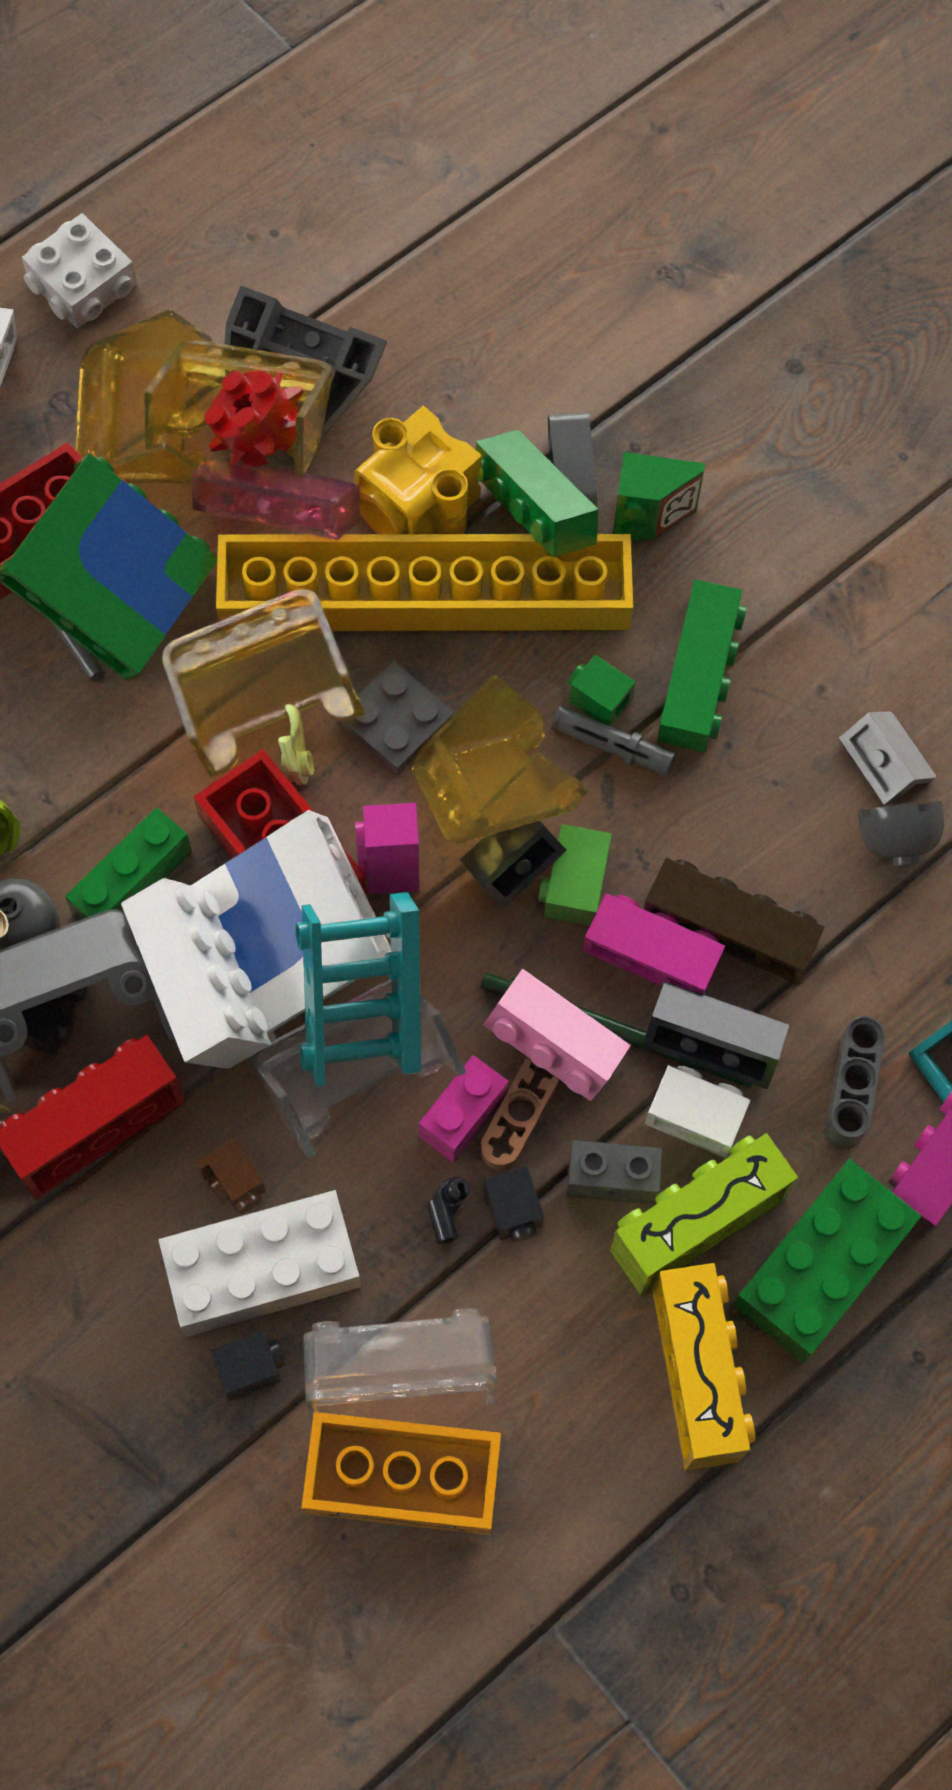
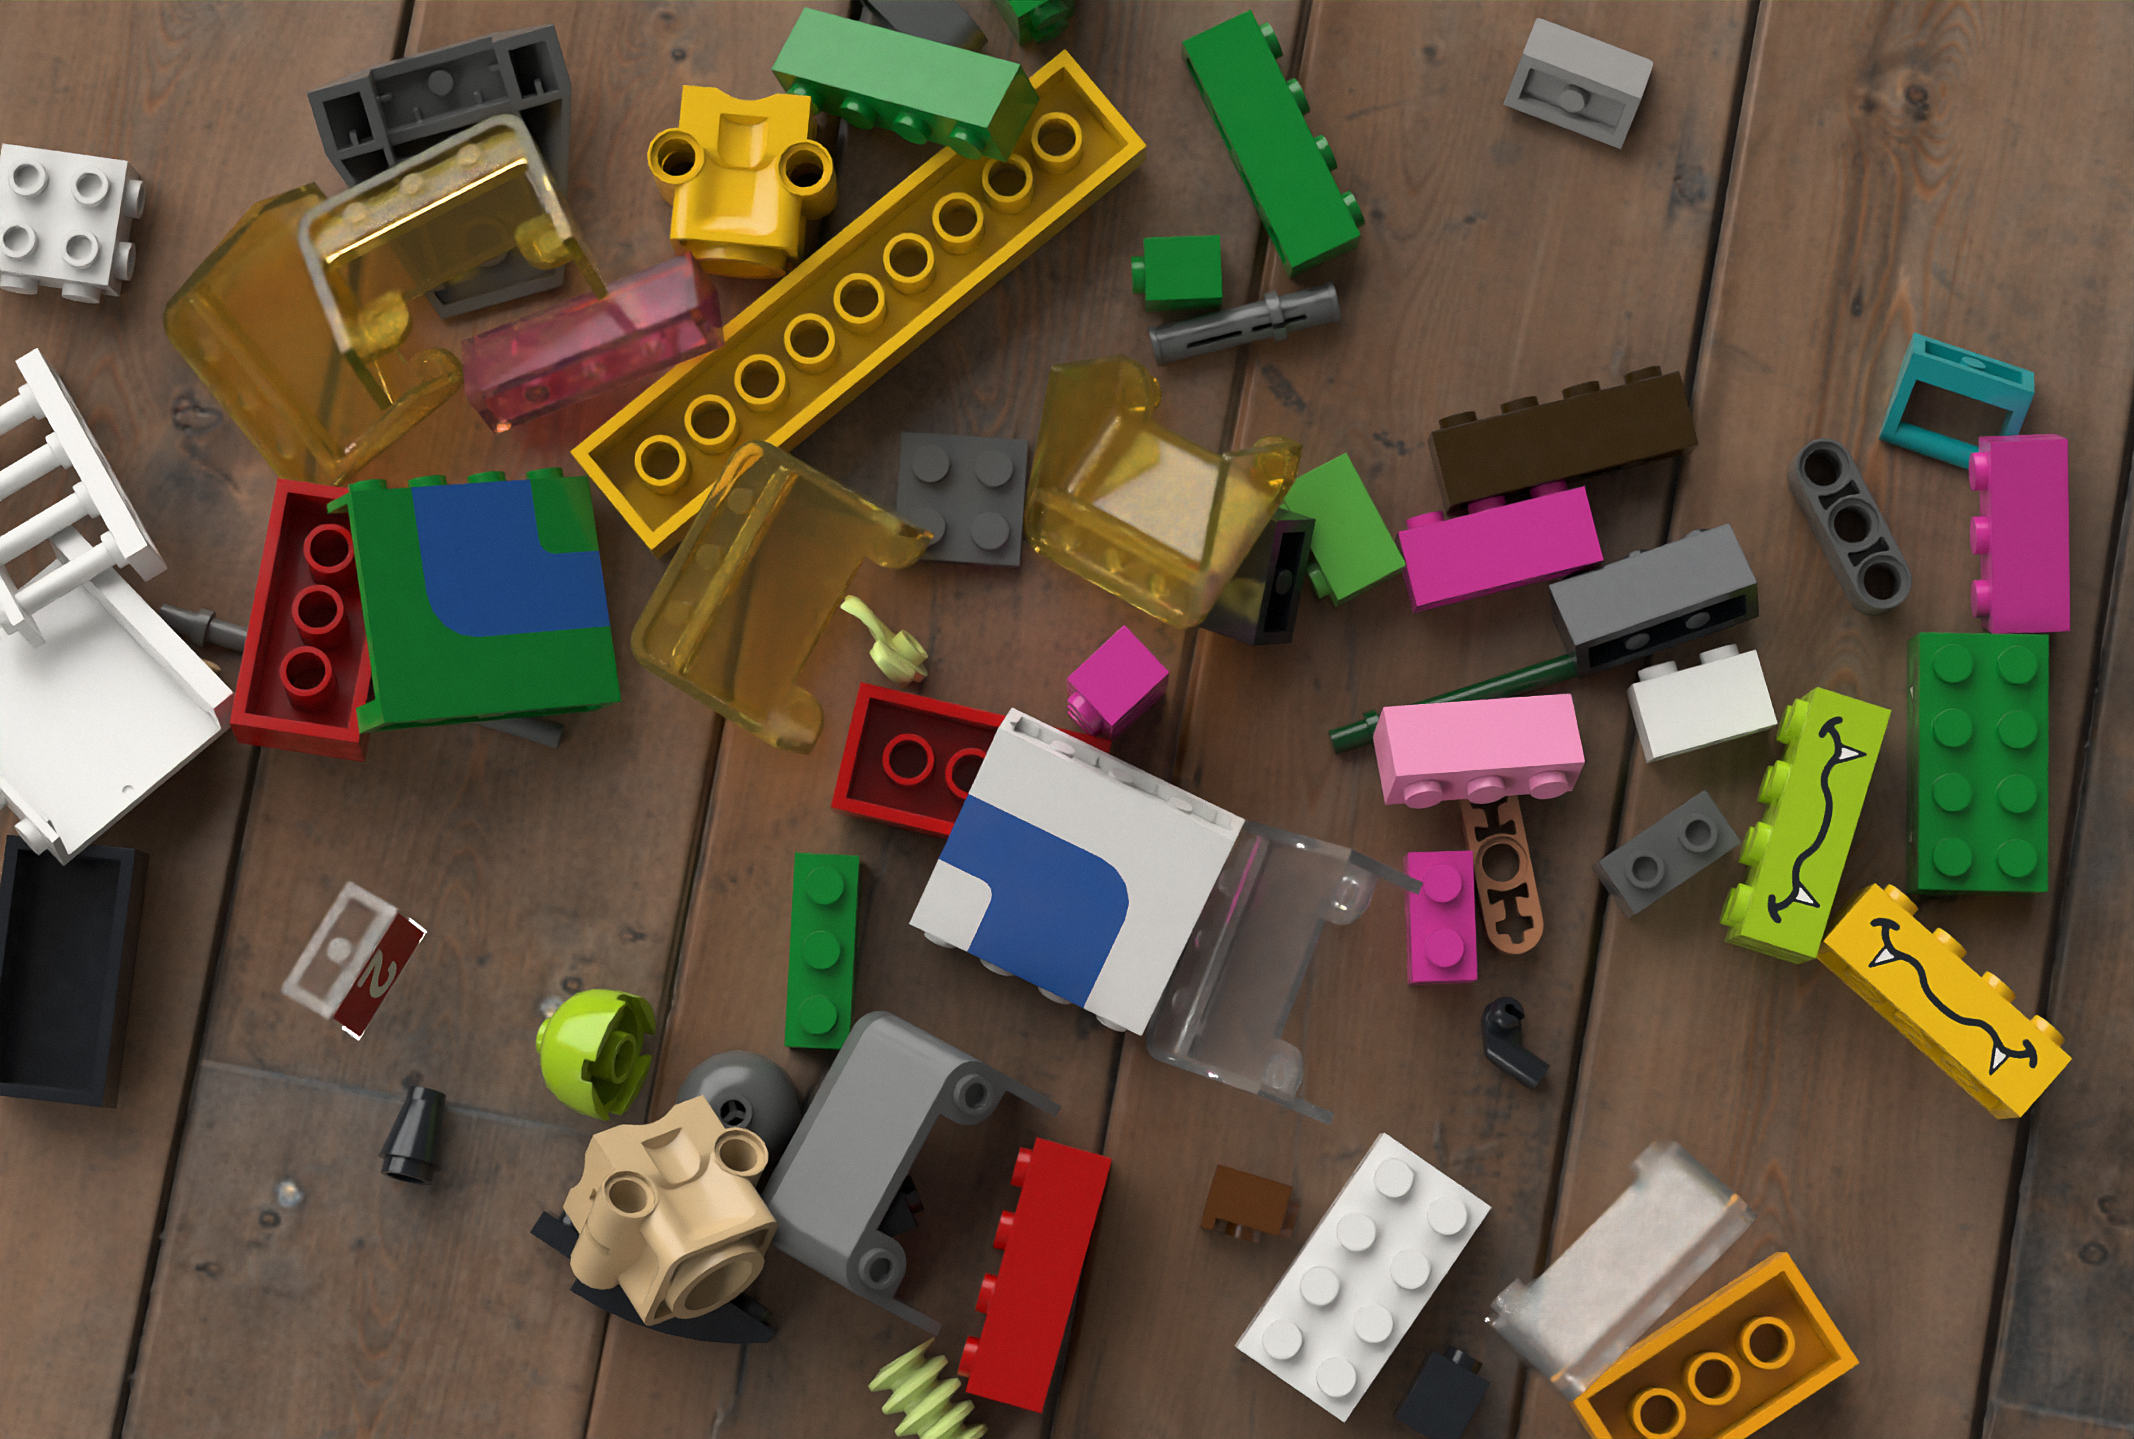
camera: 35 degrees left, 15 degrees up
(196, 974) = (1026, 1018): white brick -> none
(253, 417) = (489, 266): red brick -> none
(400, 1005) = (1289, 867): teal fence -> none
(514, 1205) = (1585, 981): black brick -> none
(902, 830) = (1670, 169): dark grey cylinder -> none

